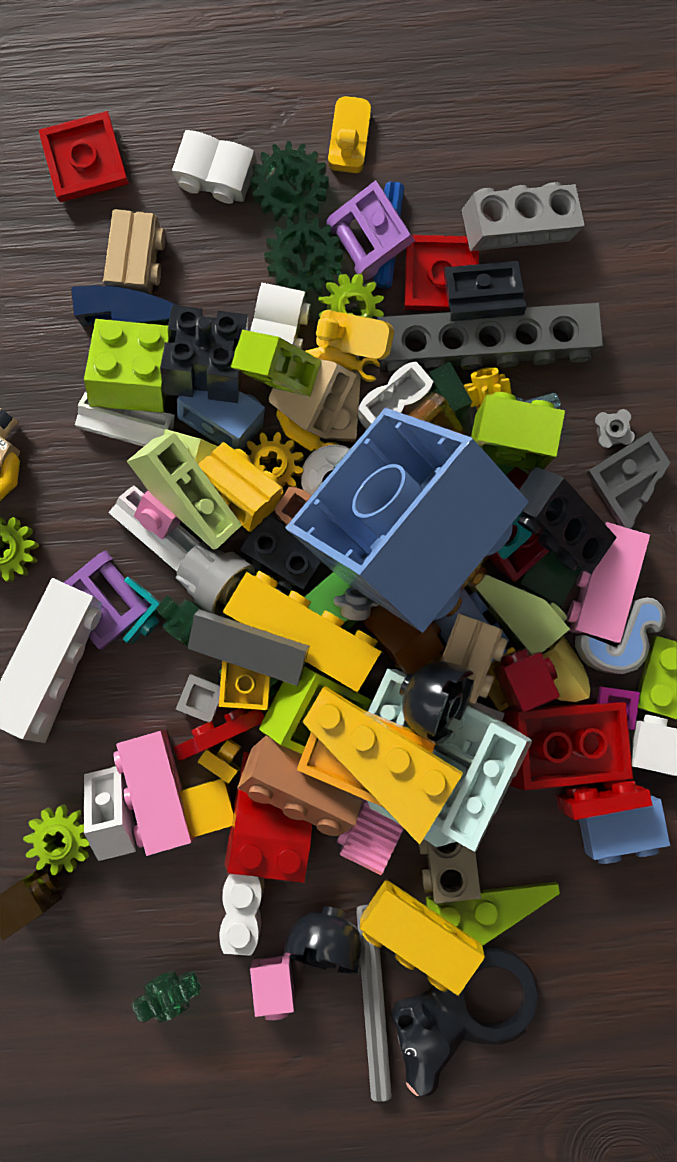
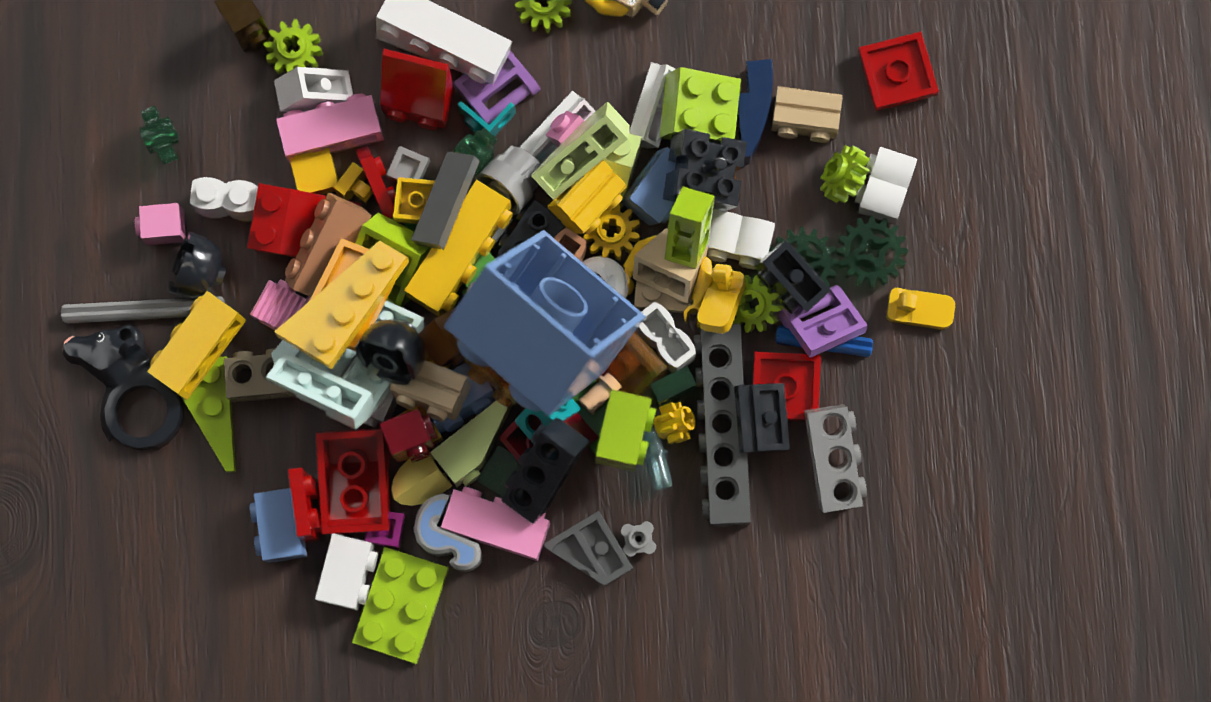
camera: 95 degrees right, 5 degrees down
(110, 691) = (416, 90): none -> red slope
(203, 207) = (844, 174): none -> lime gear
(331, 252) = (791, 279): none -> black brick

